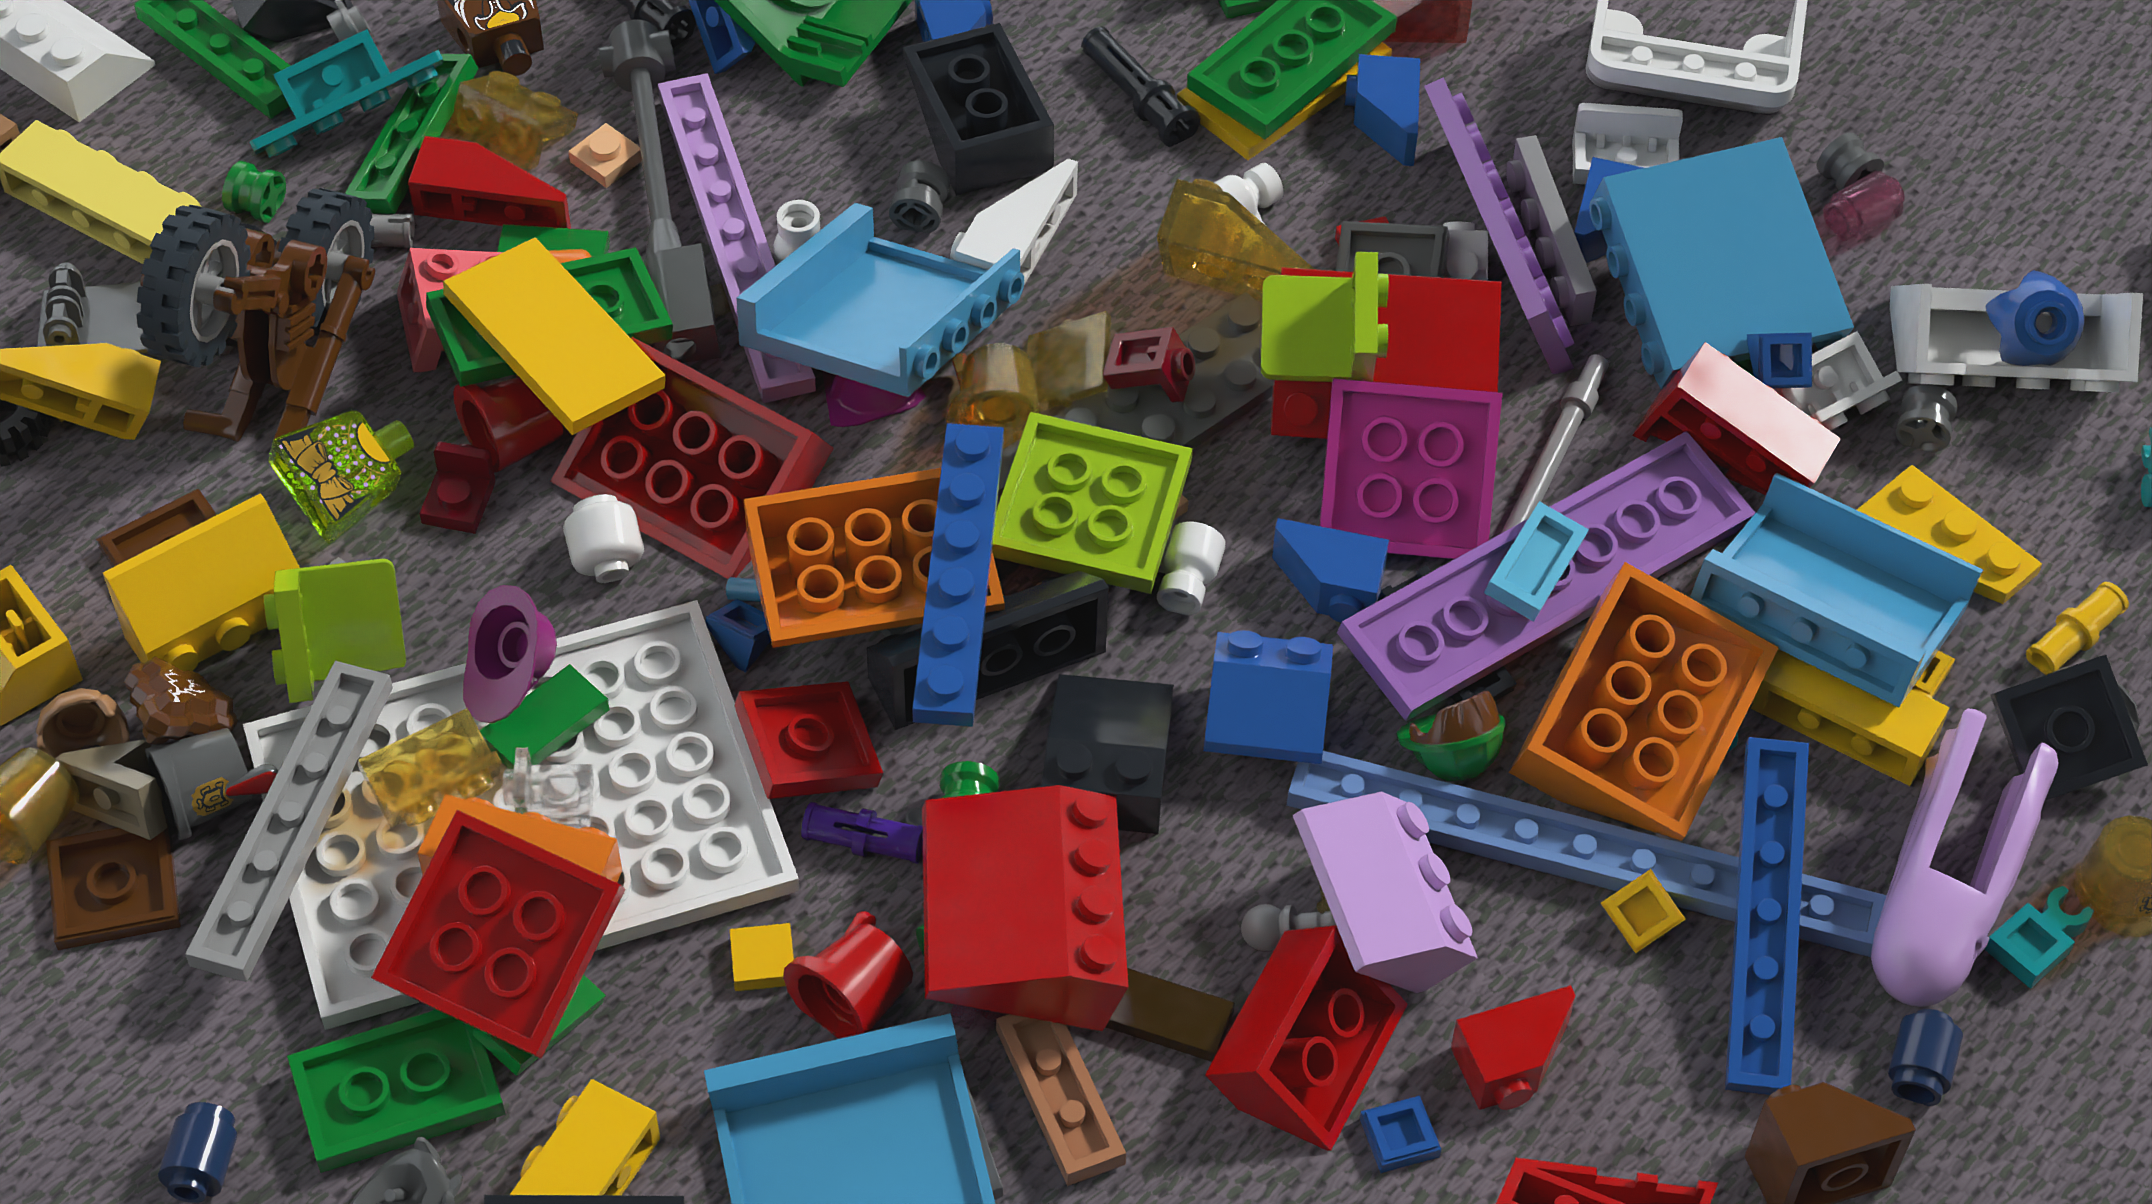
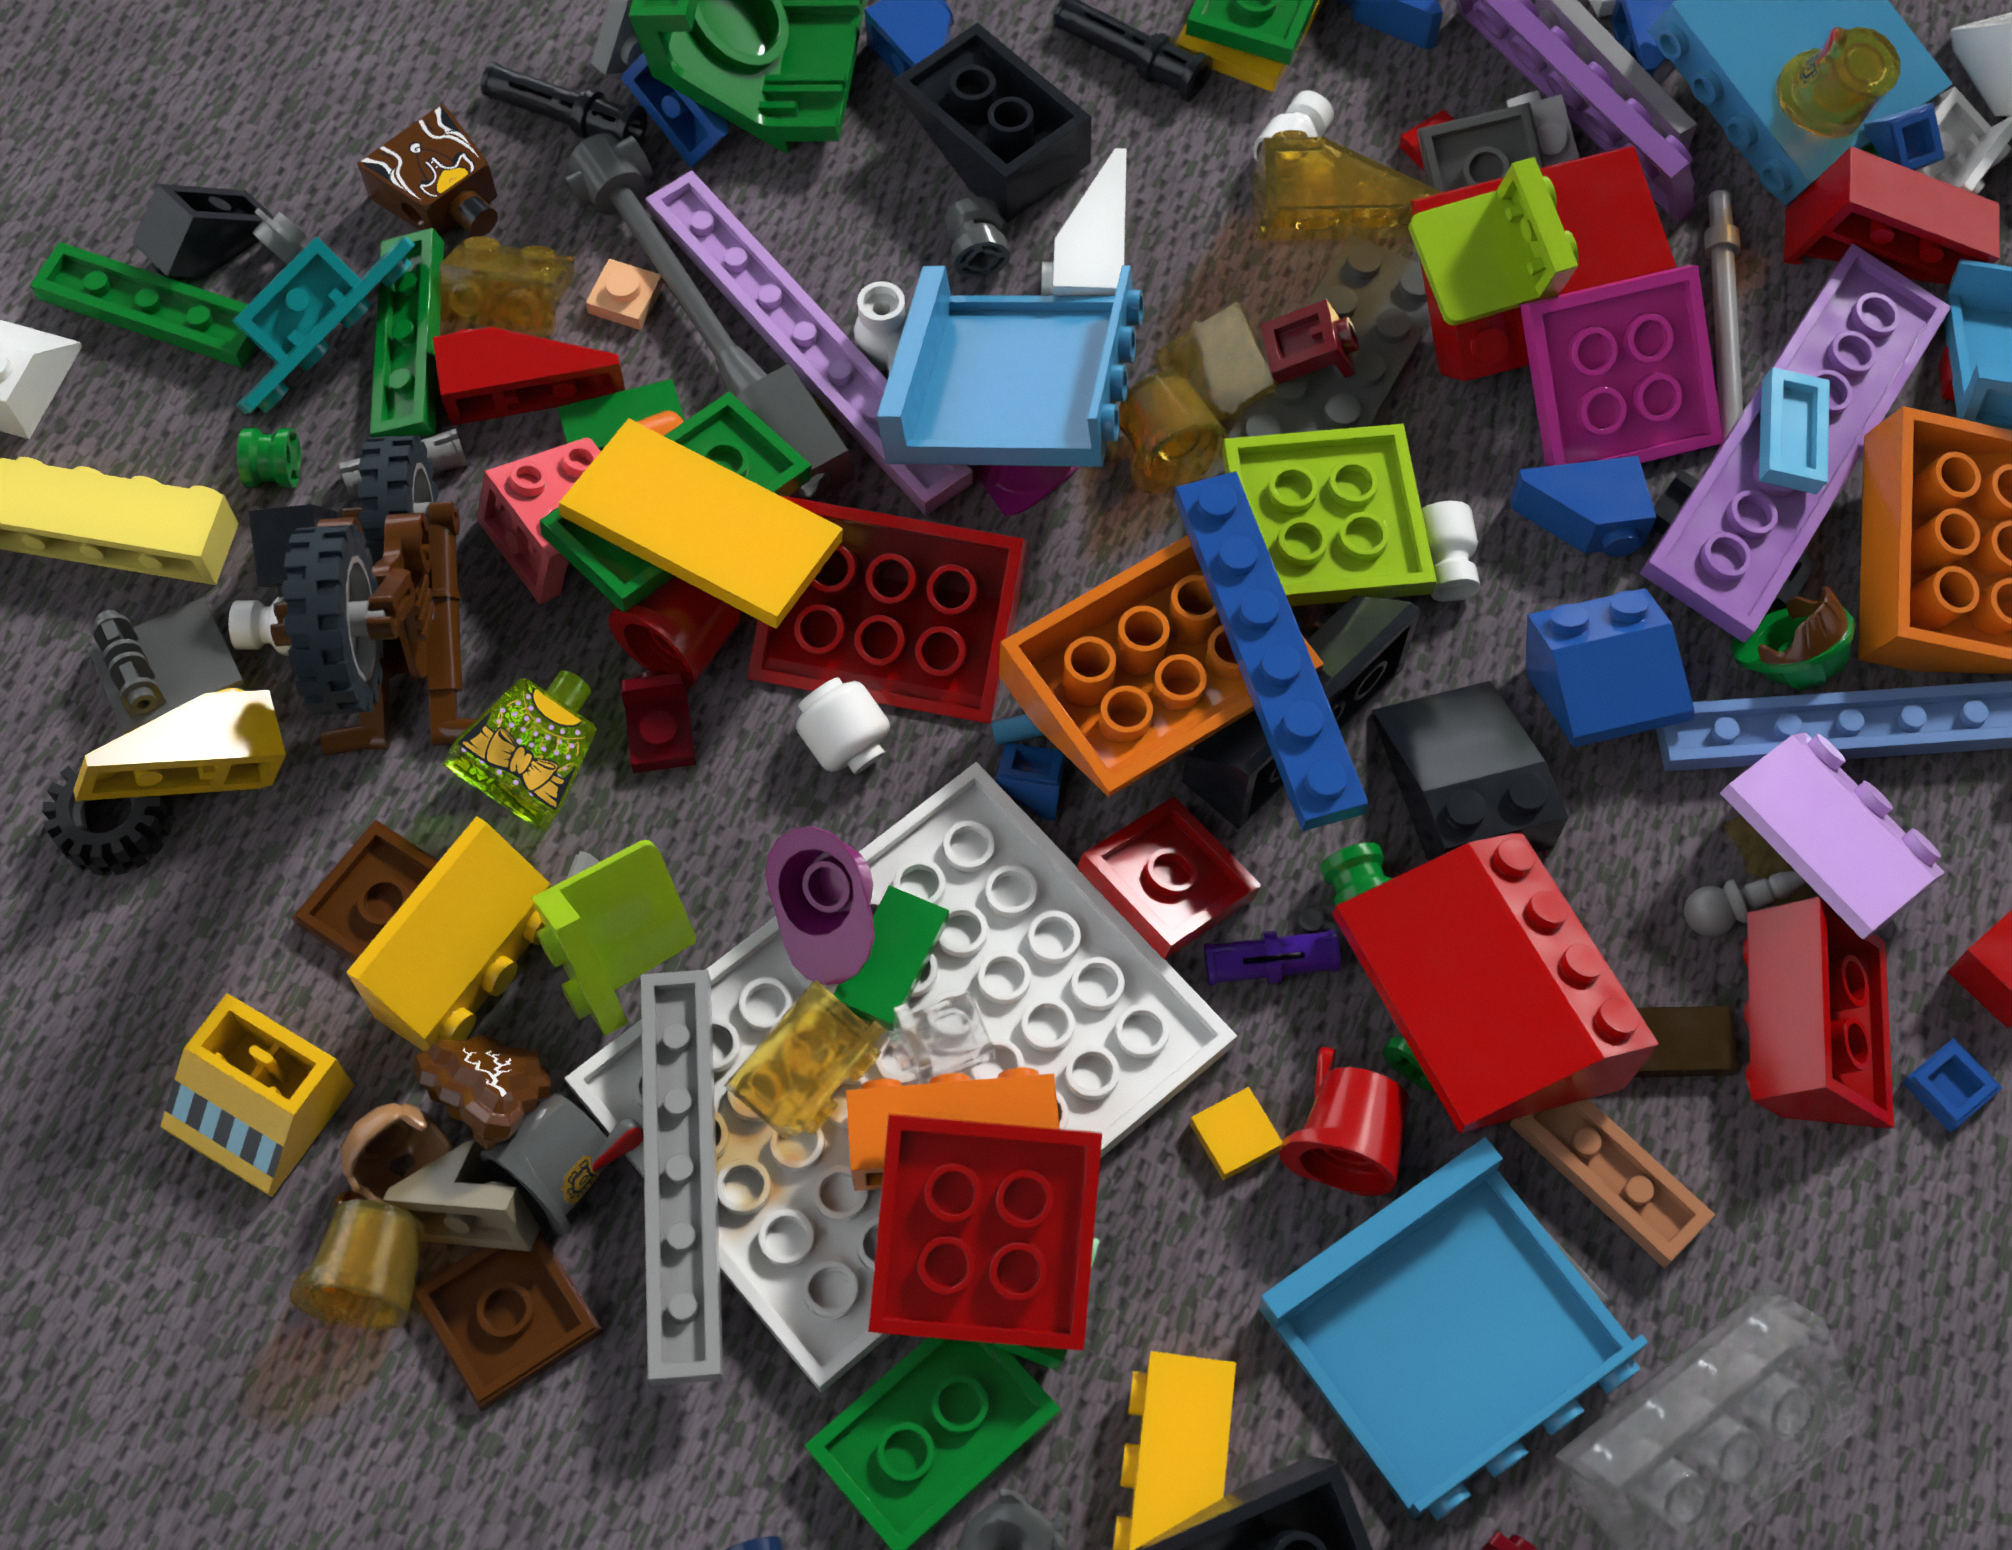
camera: 20 degrees left, 10 degrees up
(1725, 287) = (1839, 84): none -> clear yellow hat

